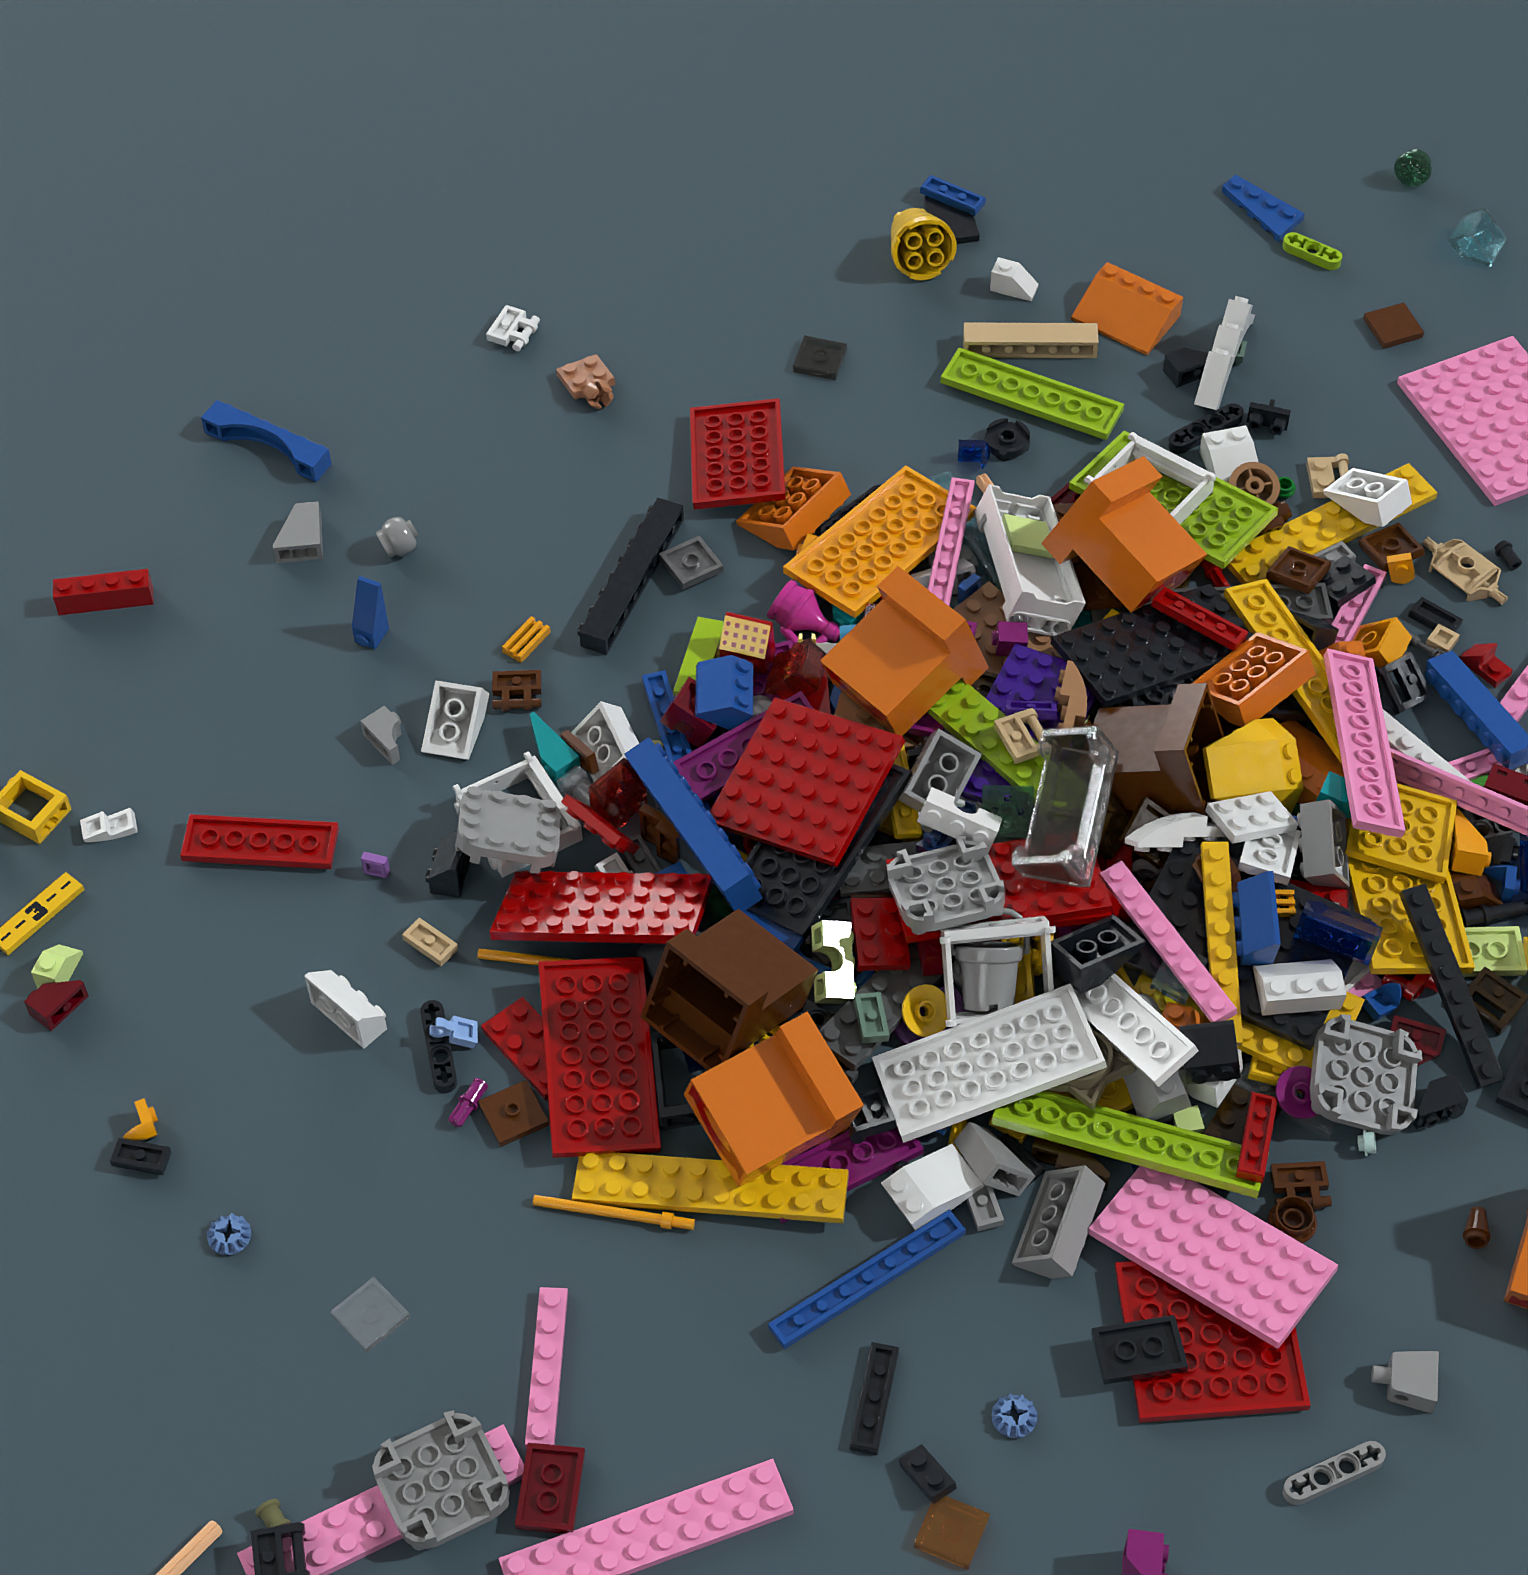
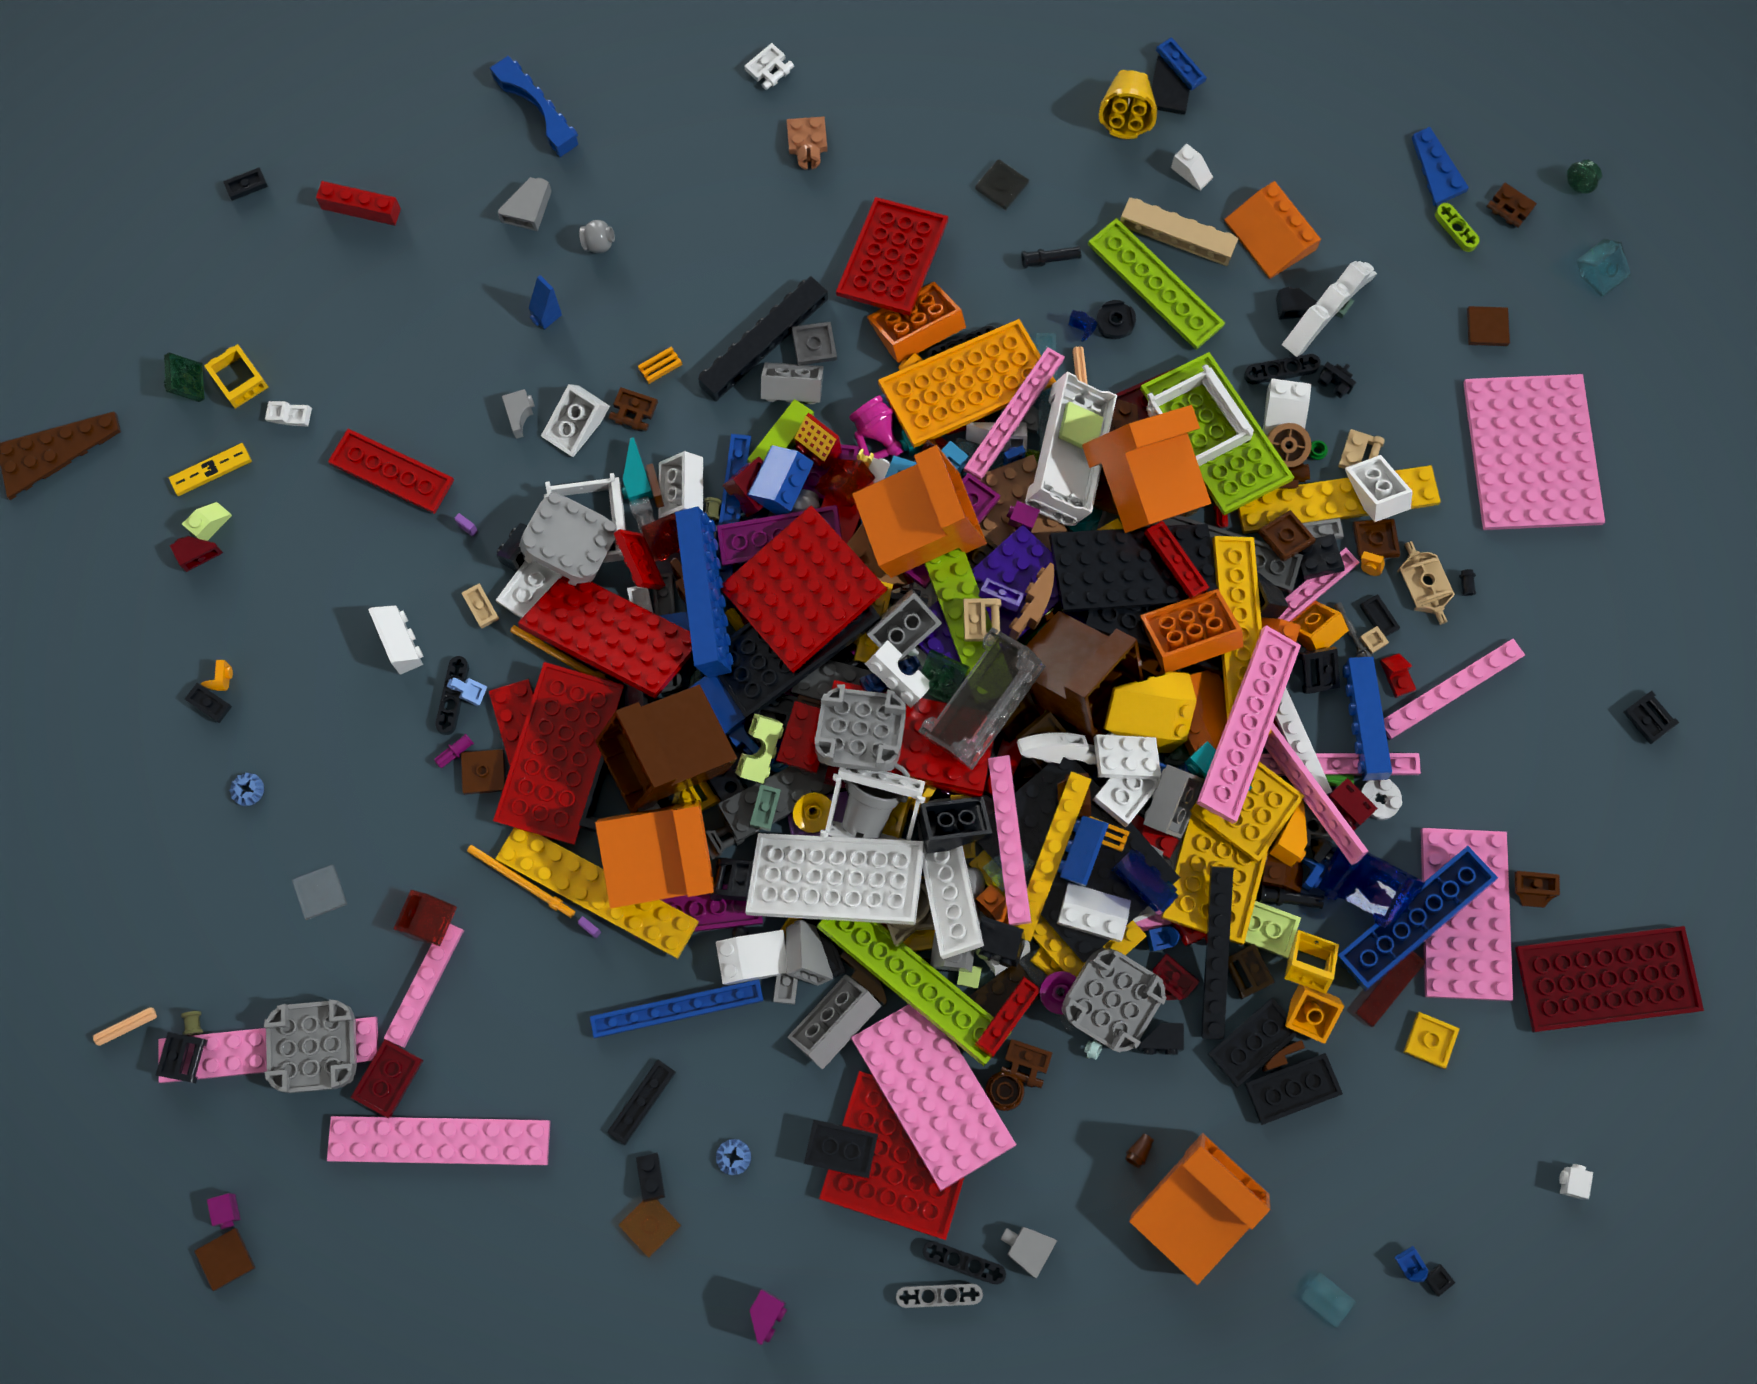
camera: 20 degrees right, 20 degrees up
(478, 902) = (527, 587): none -> white plate
(518, 1287) = (425, 918): none -> clear red slope
(685, 606) = (791, 382): none -> light grey slope
(720, 1228) = (589, 927): none -> medium lavender tile
(898, 407) = (1042, 257): none -> black pin
(1344, 1429) = (965, 1259): none -> black beam
(1355, 216) = (1514, 202): none -> reddish brown plate

